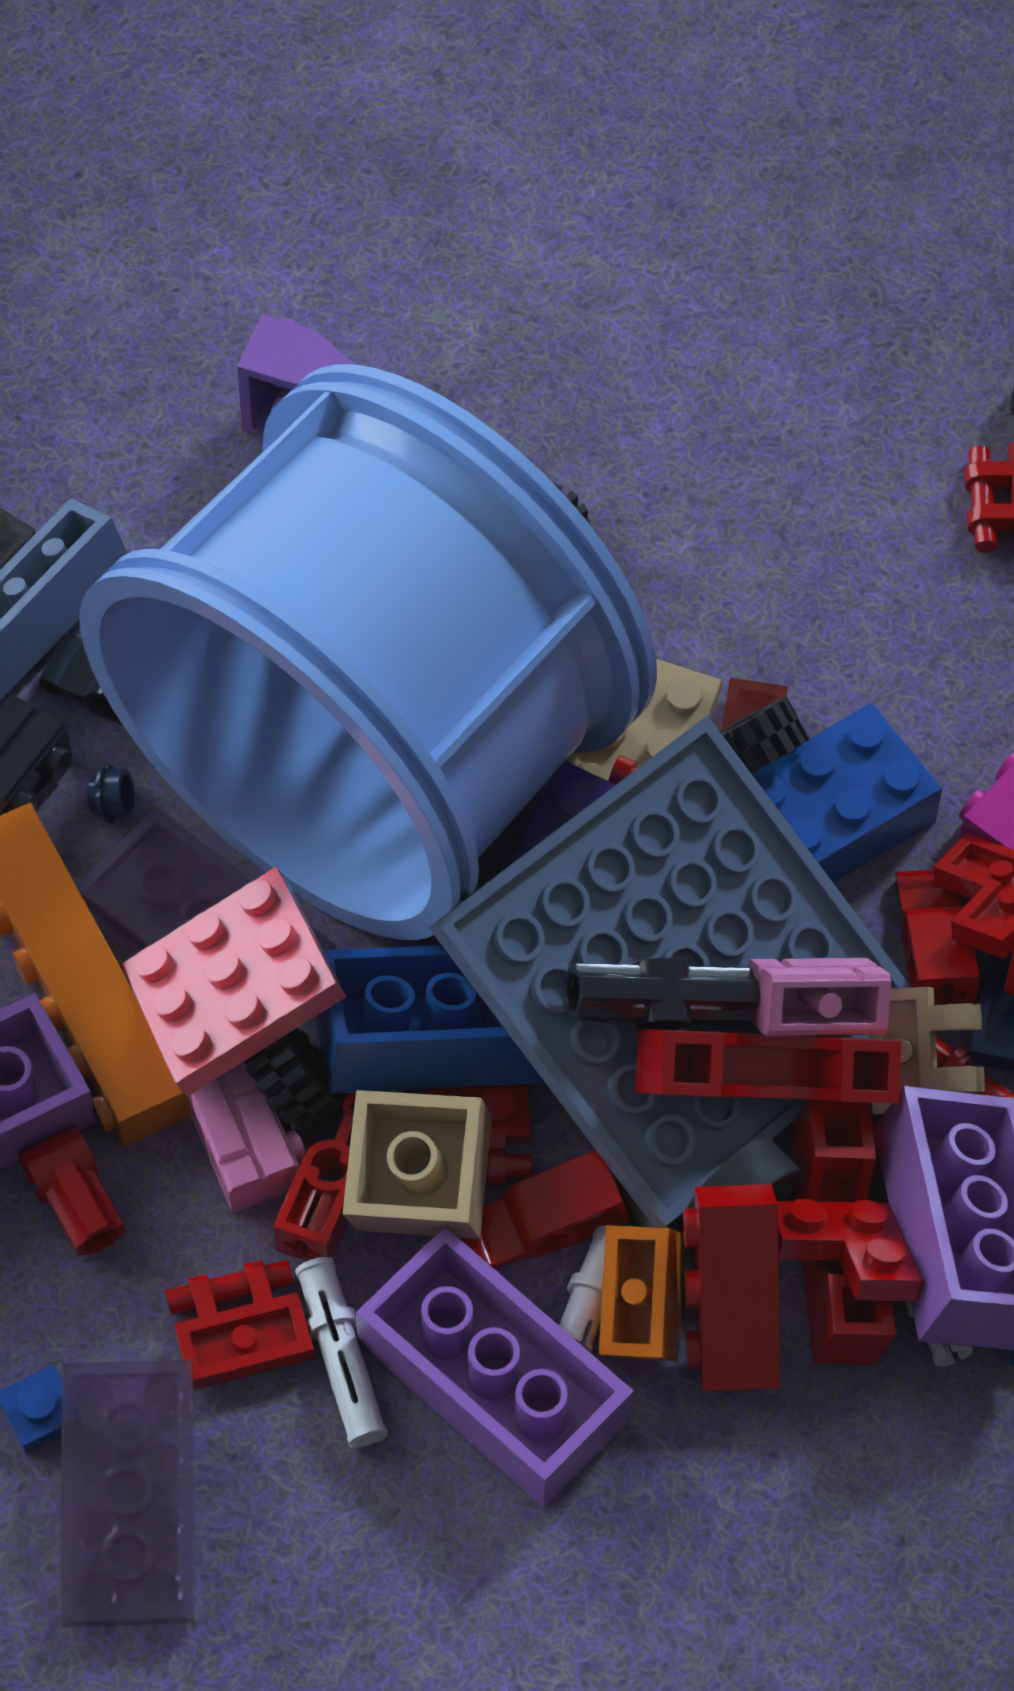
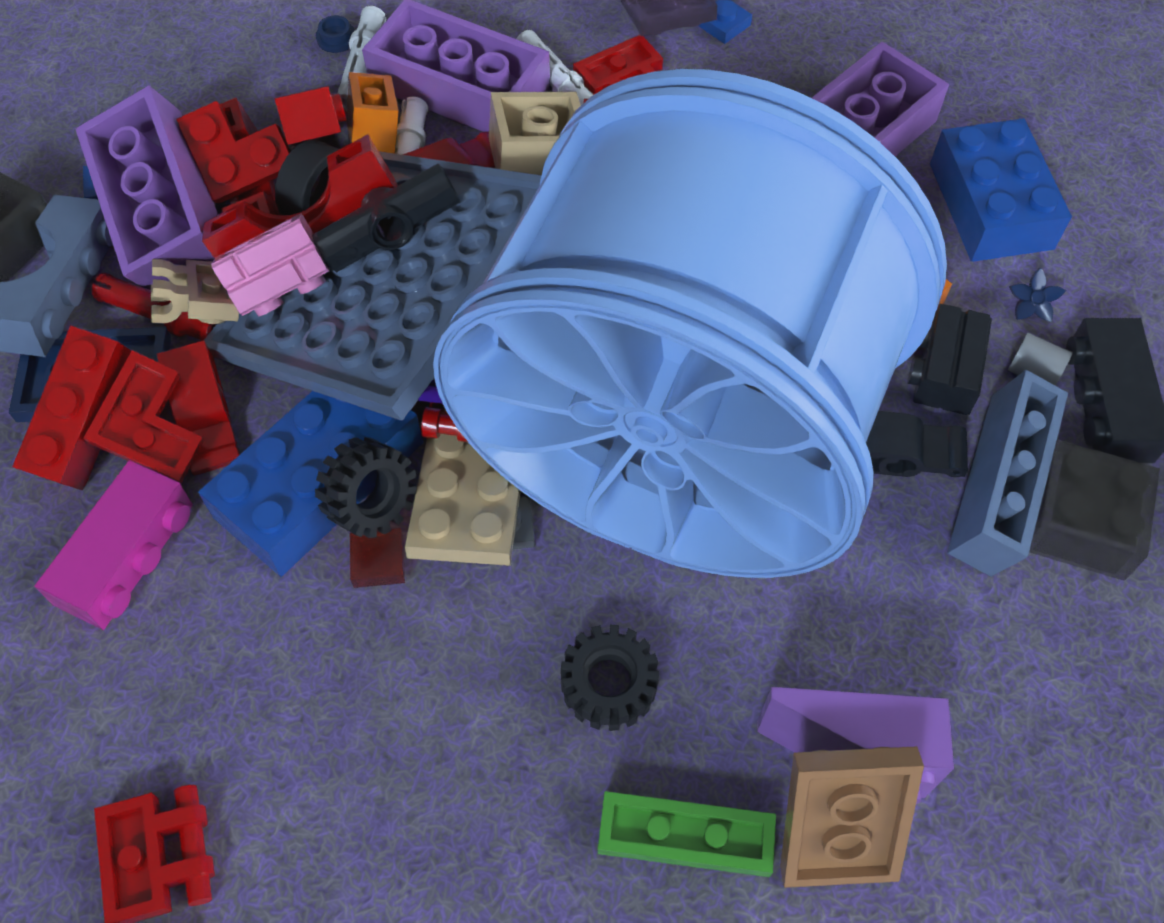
camera: 165 degrees right, 0 degrees up
(368, 323) = (849, 815): none -> medium nougat plate
(511, 391) = (687, 834): none -> bright green plate
(607, 1530) = (370, 22): none -> white pin
(664, 1534) = (334, 34): none -> dark blue plate

